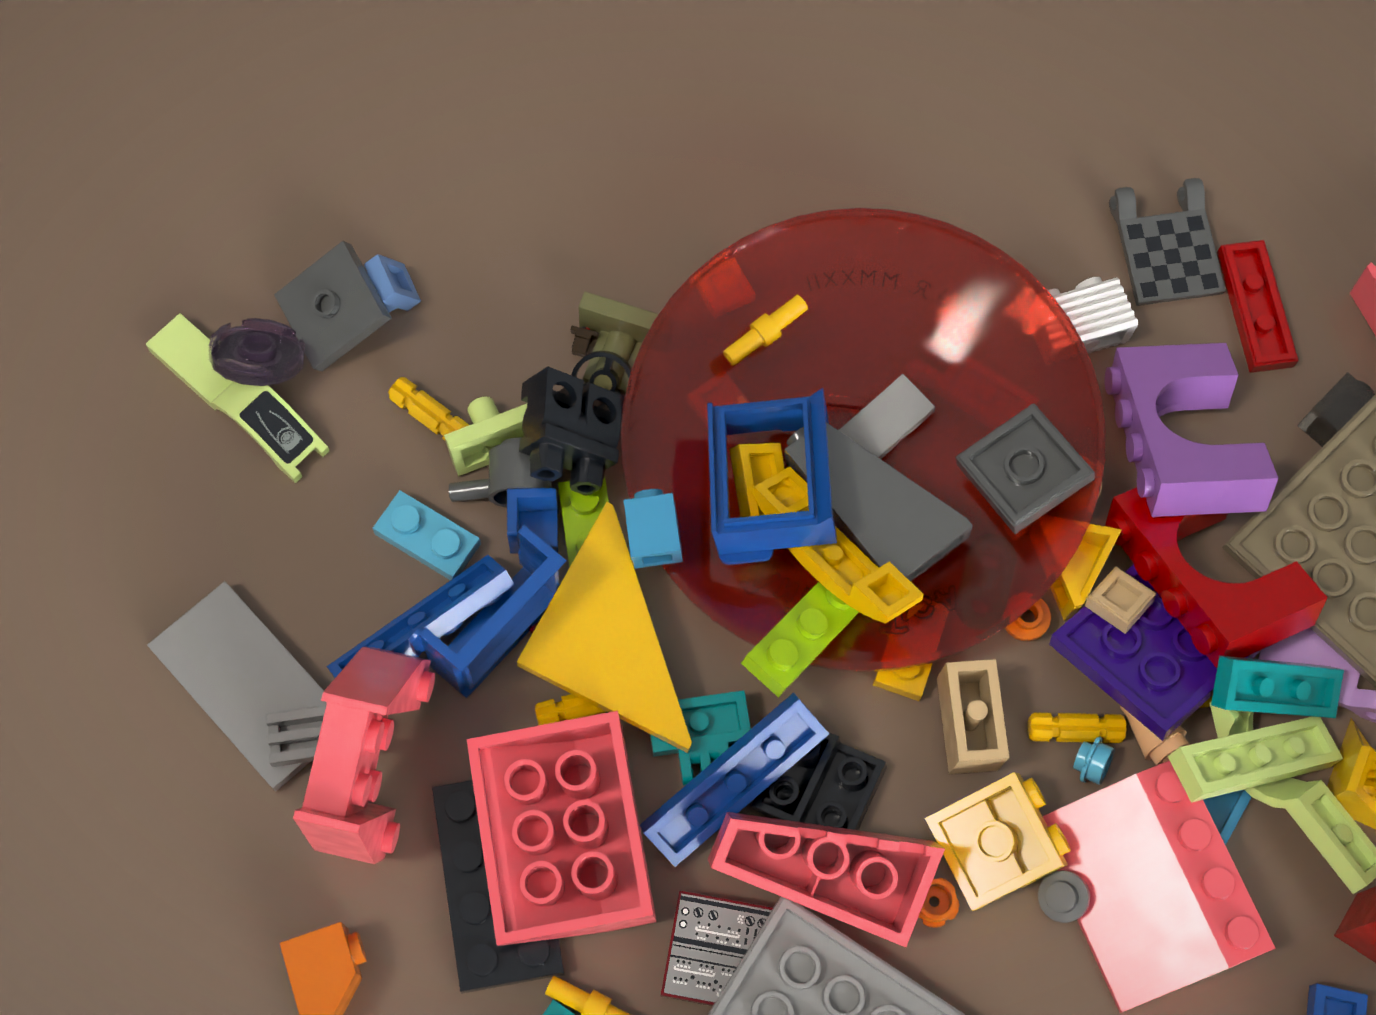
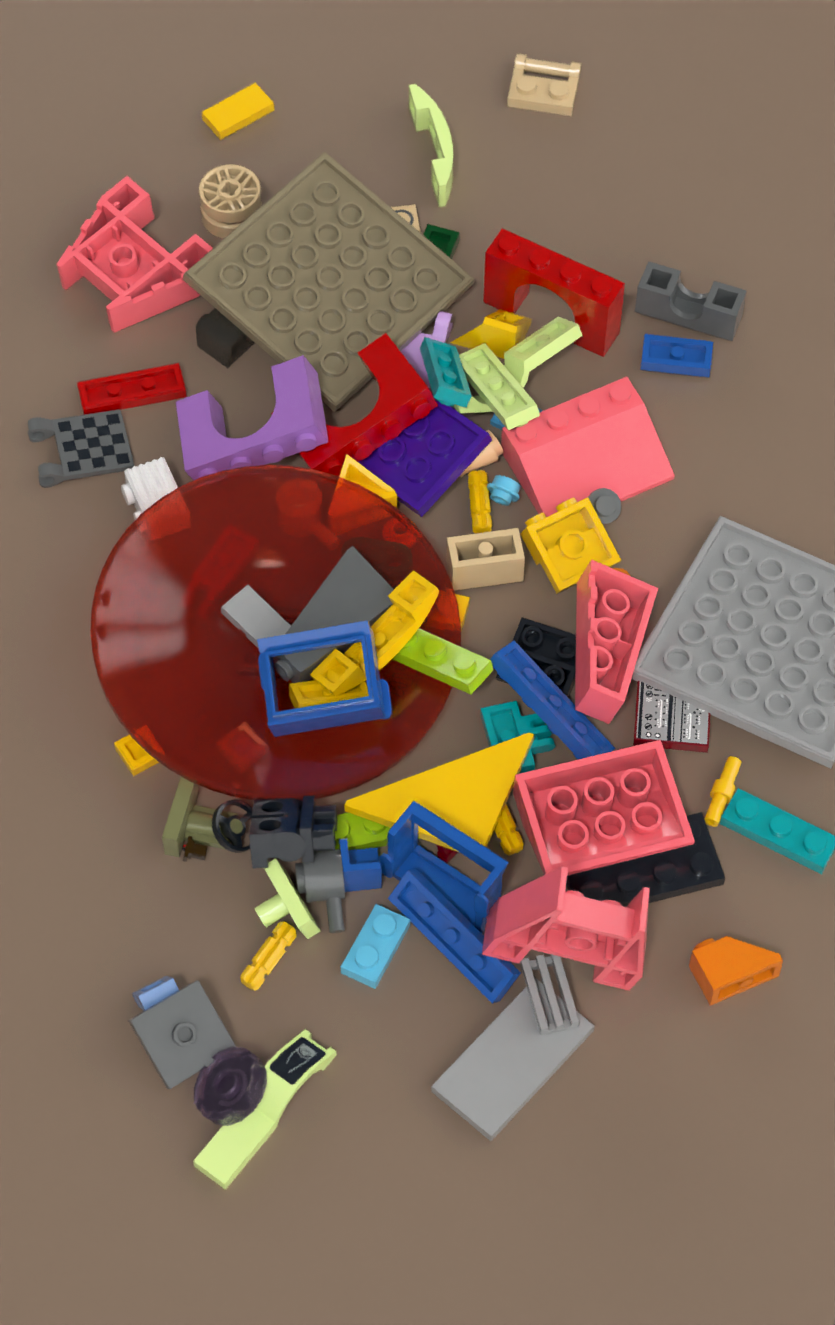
camera: 90 degrees left, 10 degrees down
(653, 528) = (369, 762): dark azure brick -> none
(765, 330) = (195, 697): yellow bar -> none
(1024, 468) = (301, 517): dark grey plate -> none
(1120, 599) = (389, 466): tan tile -> none

